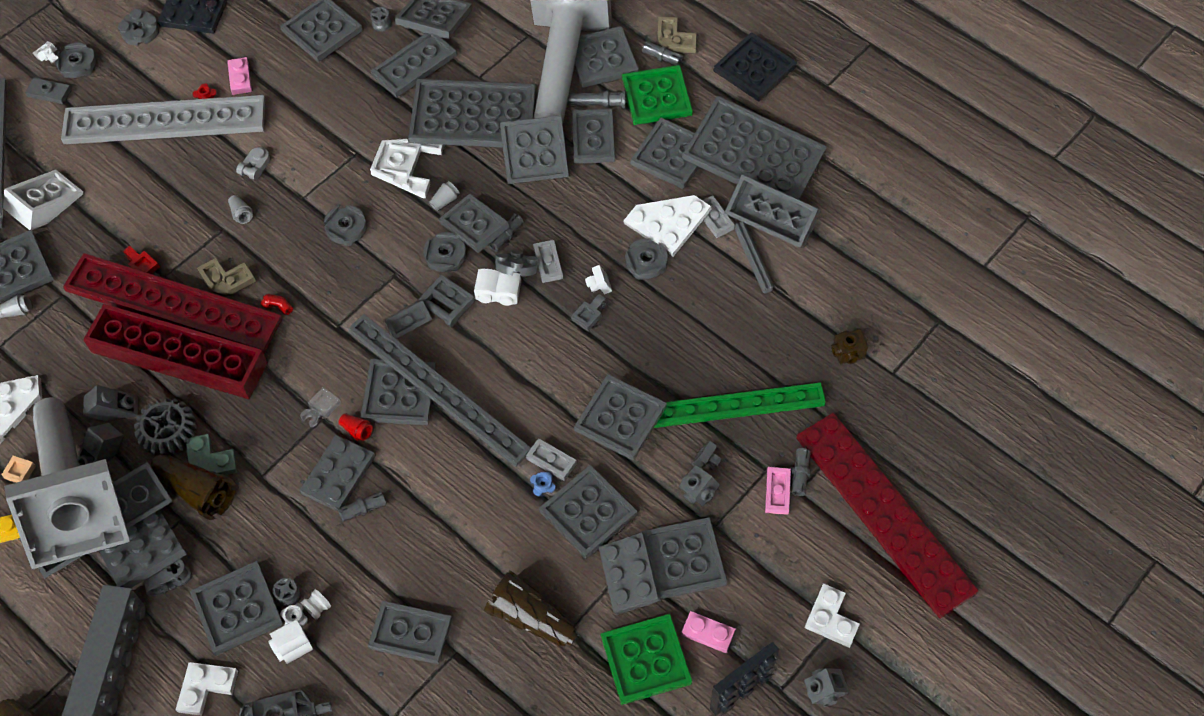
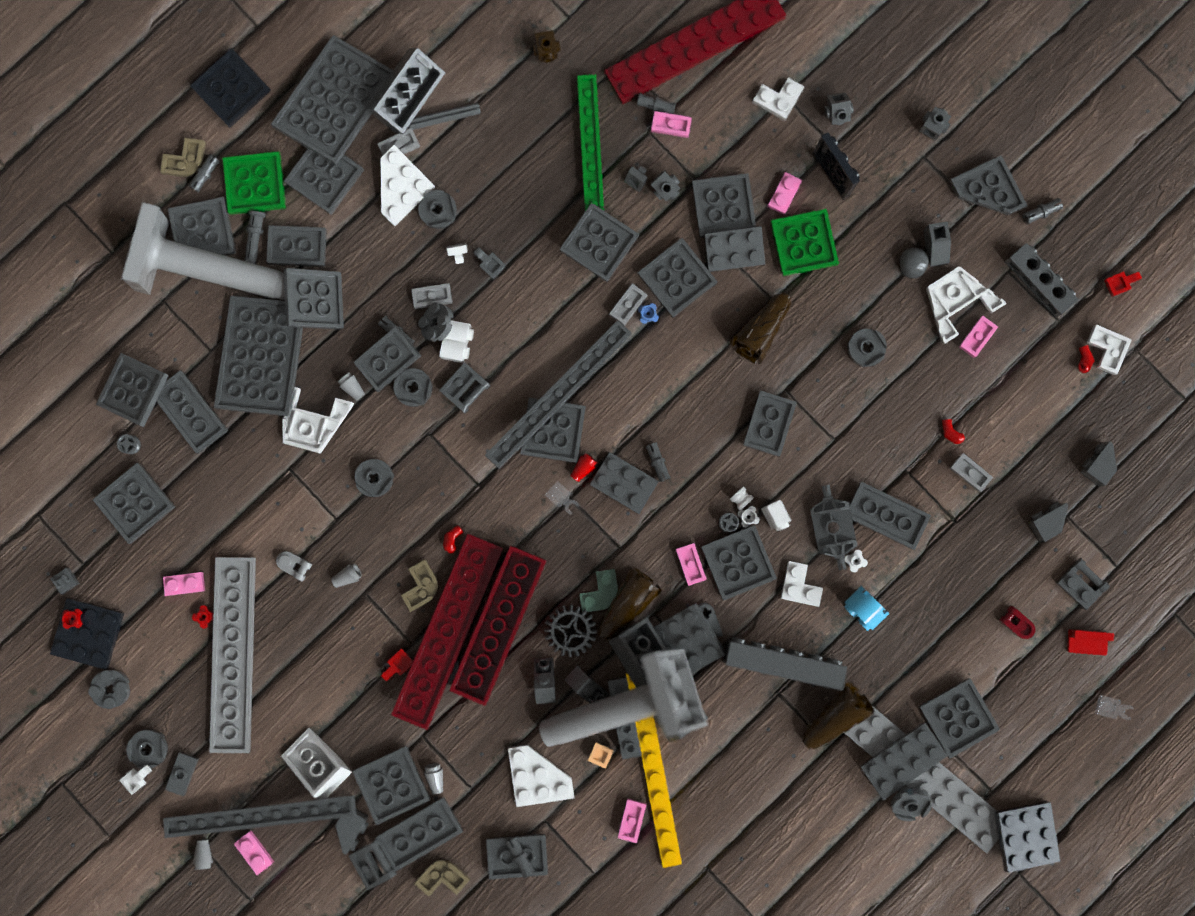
camera: 85 degrees left, 25 degrees up
(236, 552) = (691, 564): none -> bright pink plate
(407, 319) = (482, 421): dark grey plate -> none

